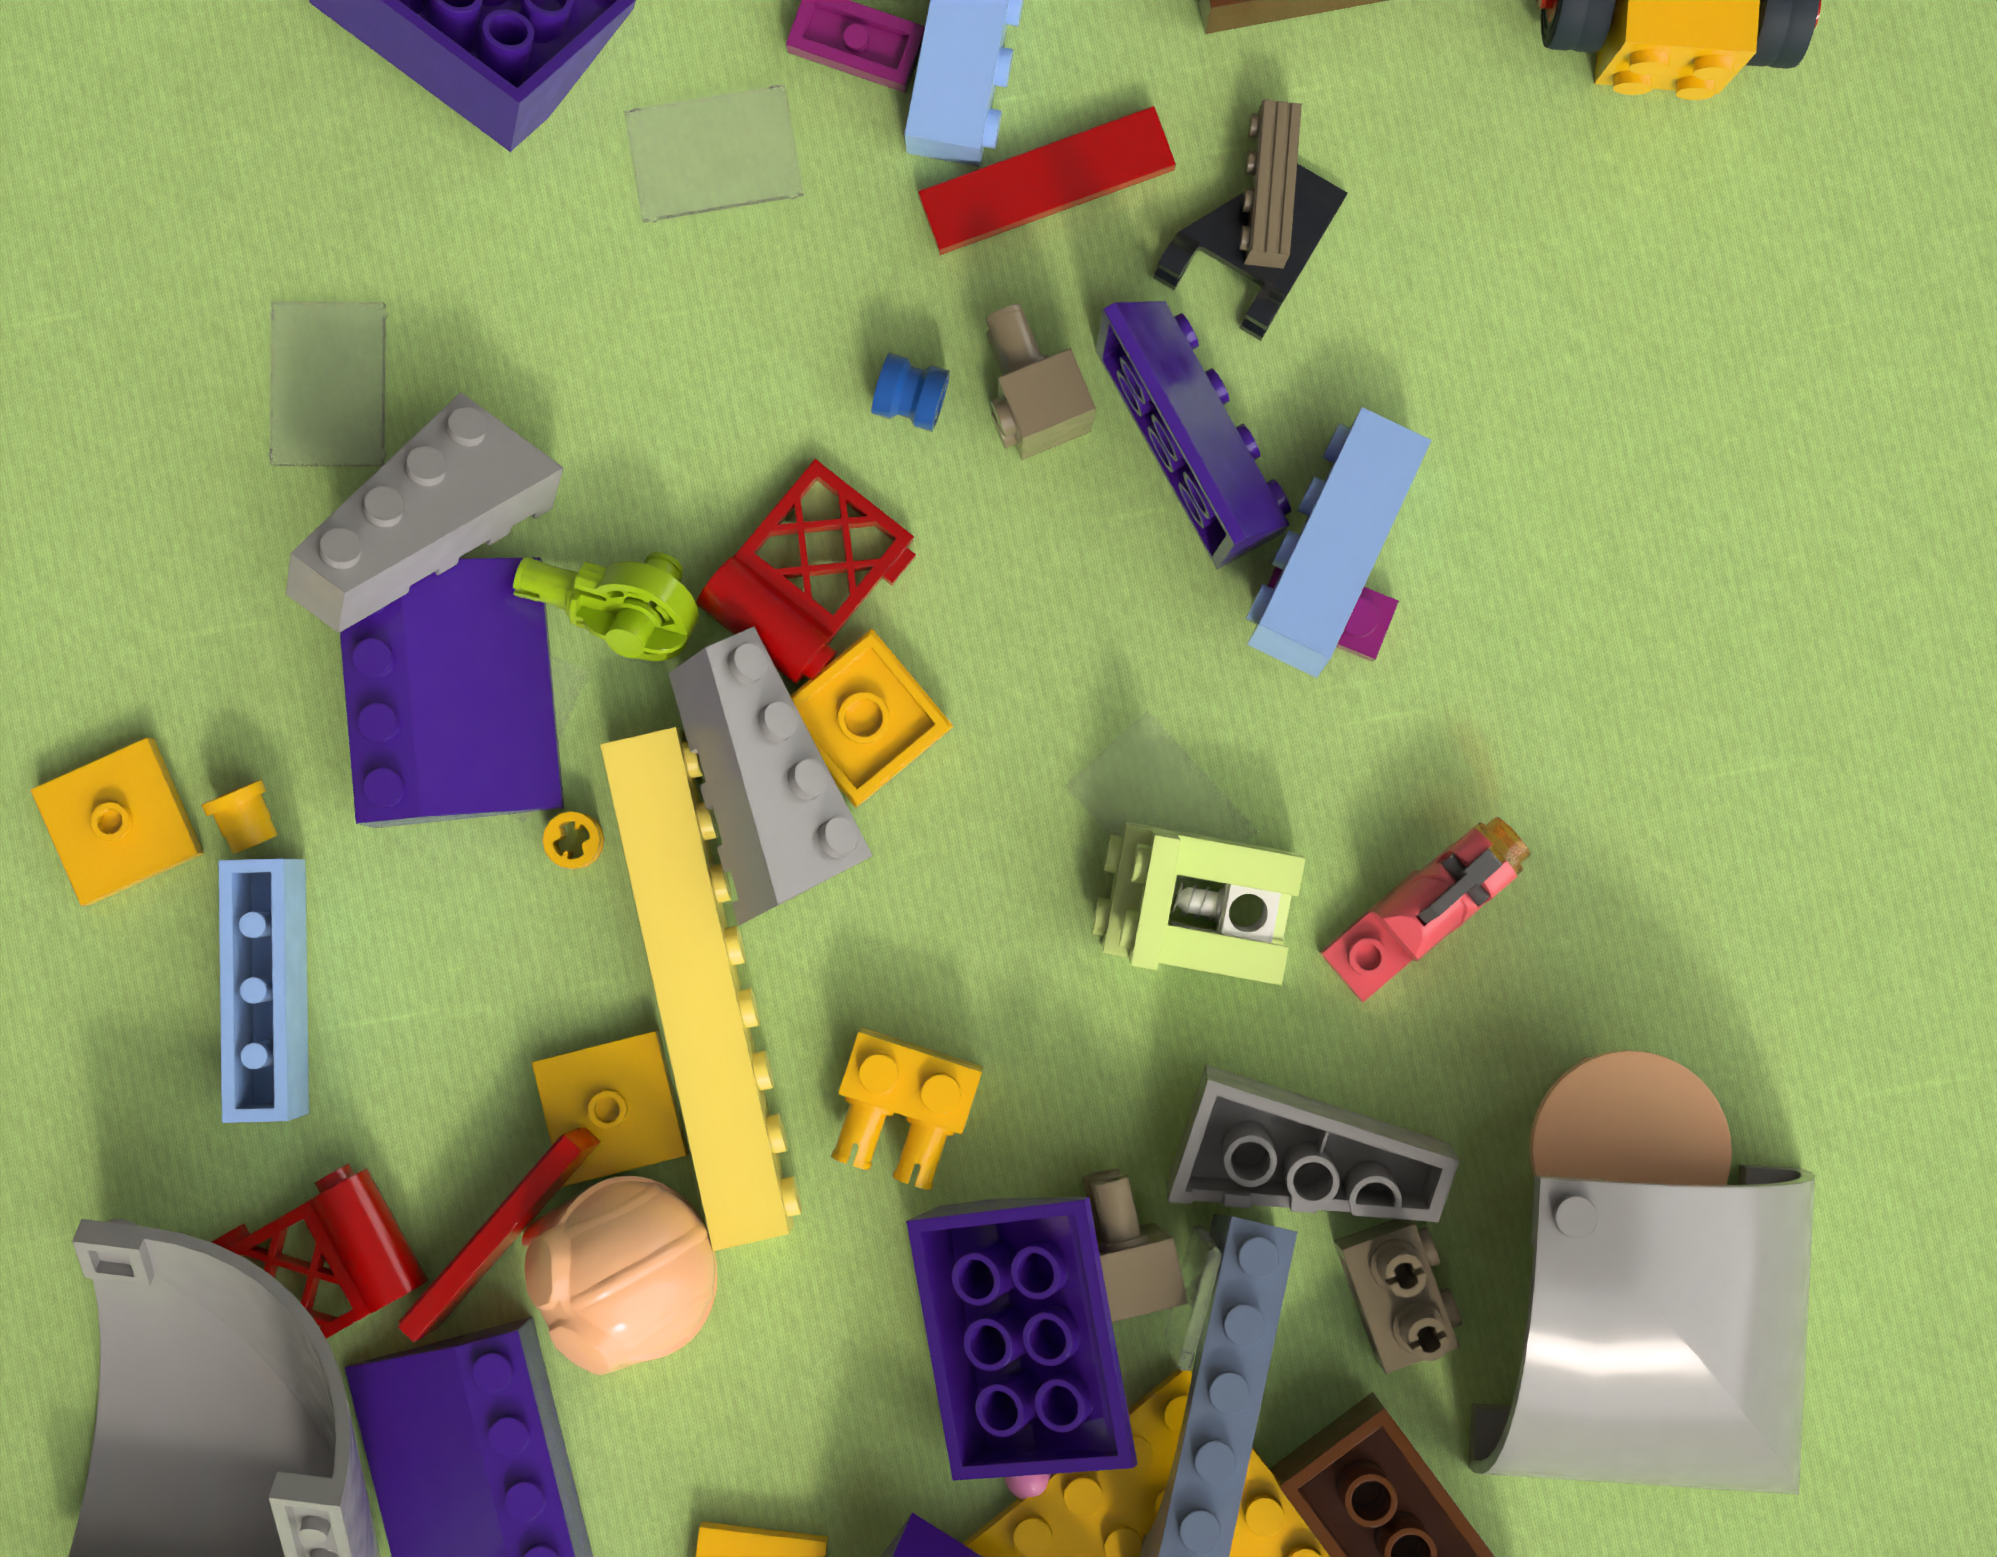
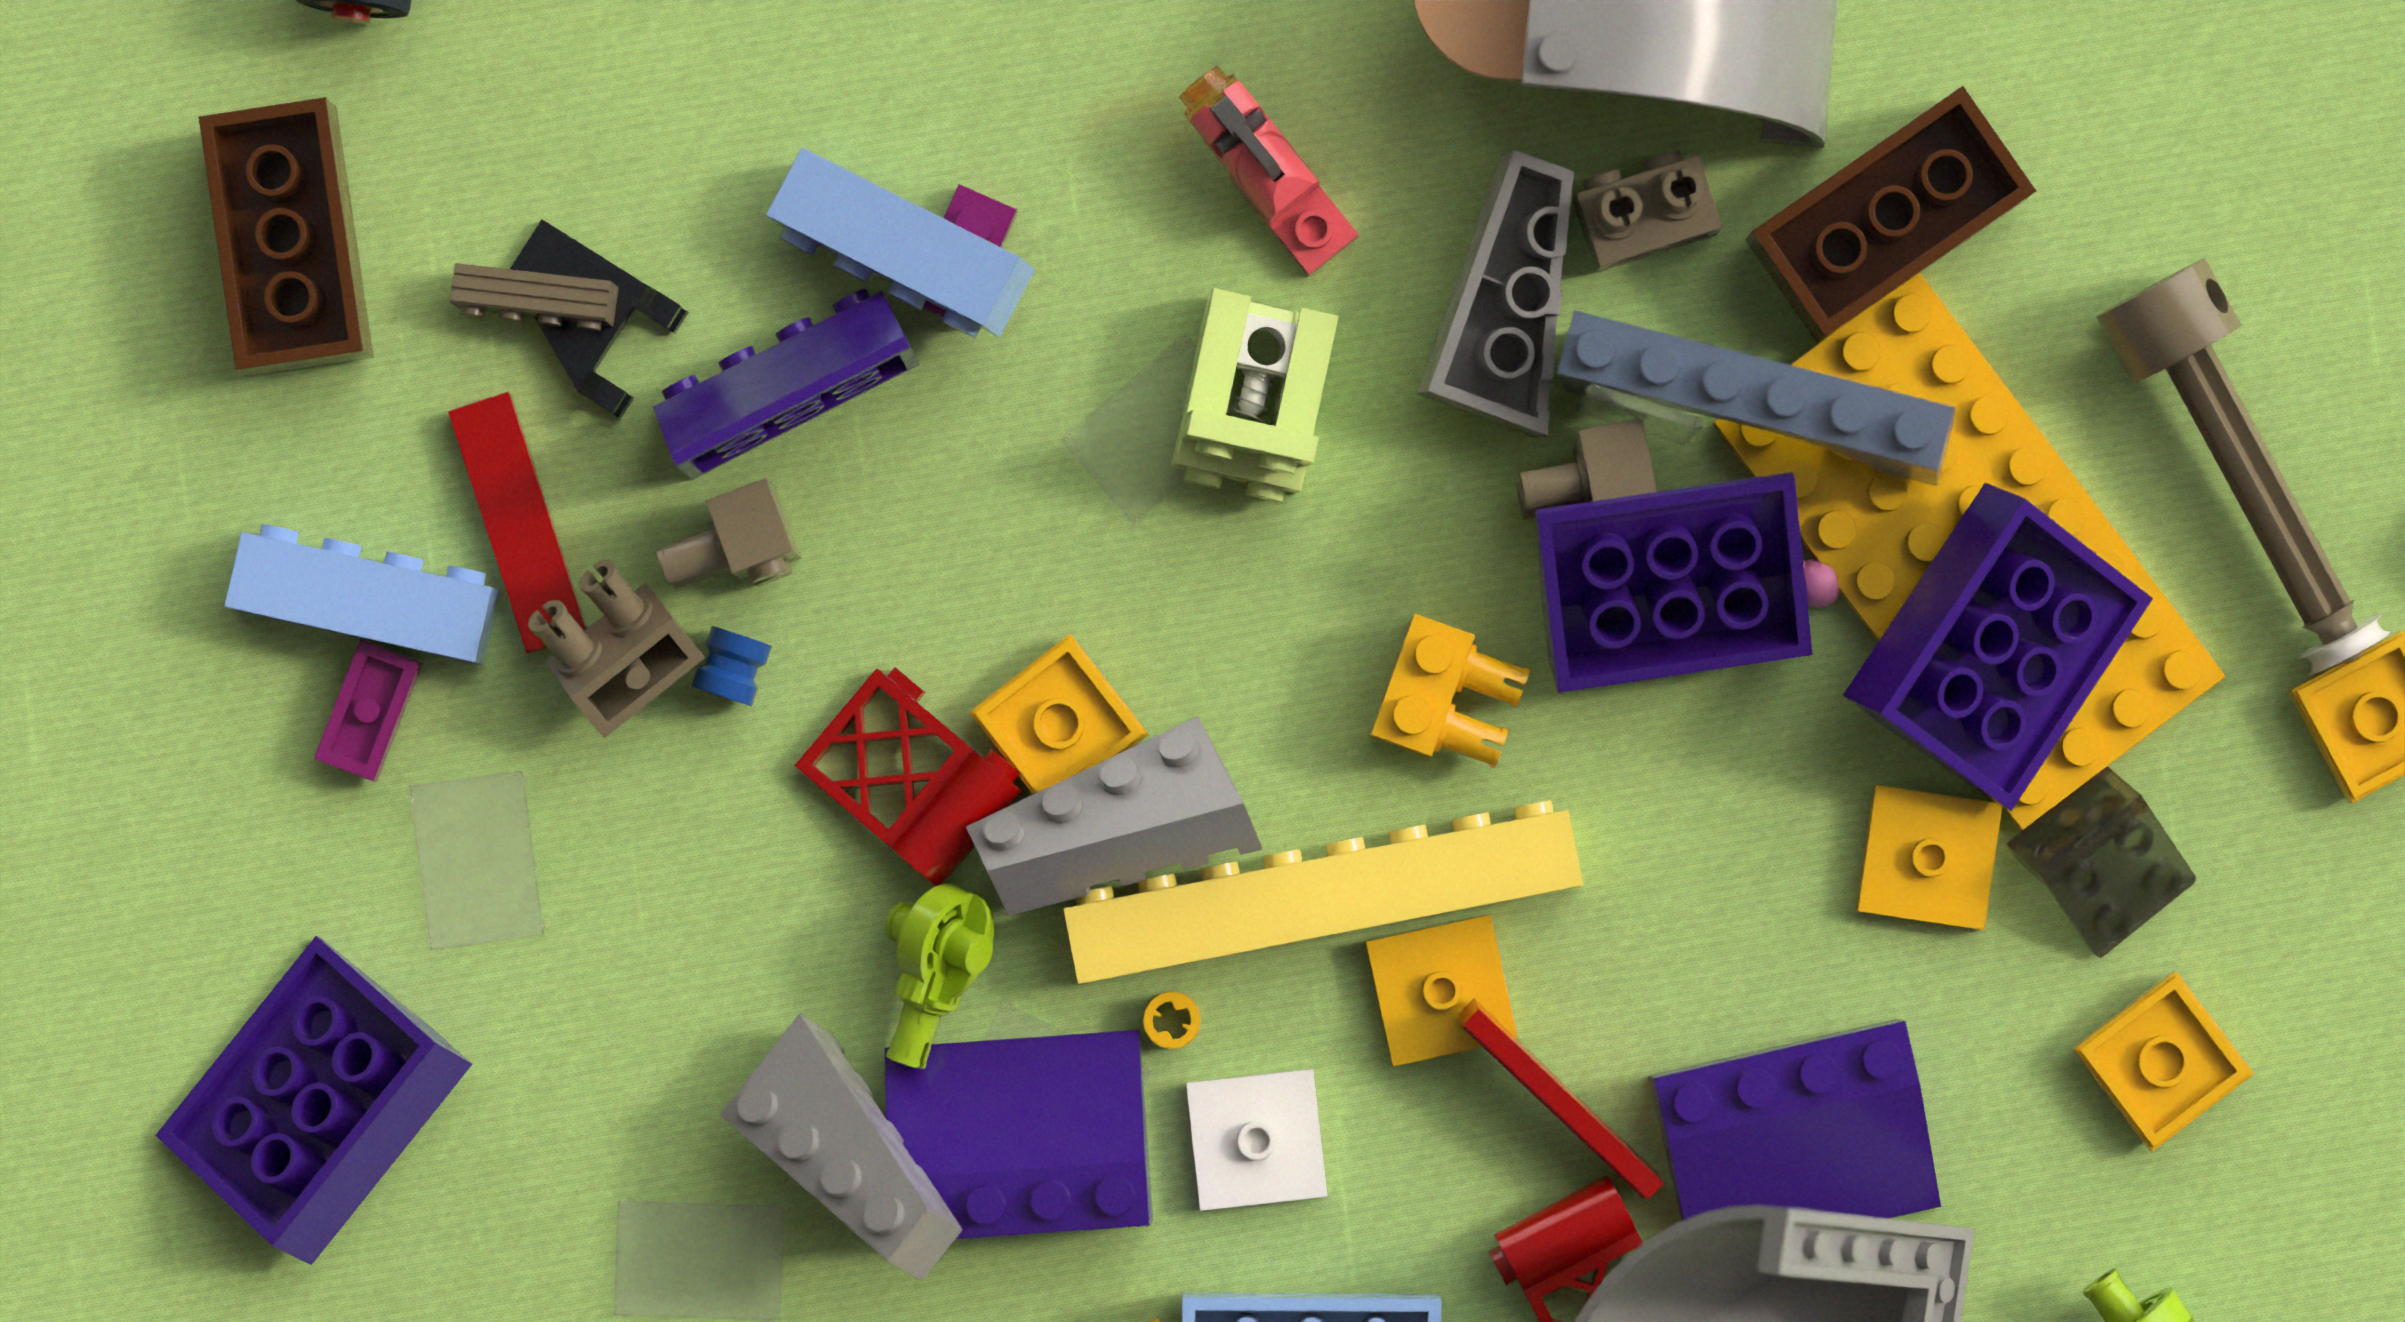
camera: 90 degrees left, 0 degrees up
(457, 928) = (1256, 1139): none -> white plate
(621, 1273) = (1601, 974): light nougat piece -> none
(914, 281) = (622, 656): none -> dark tan brick

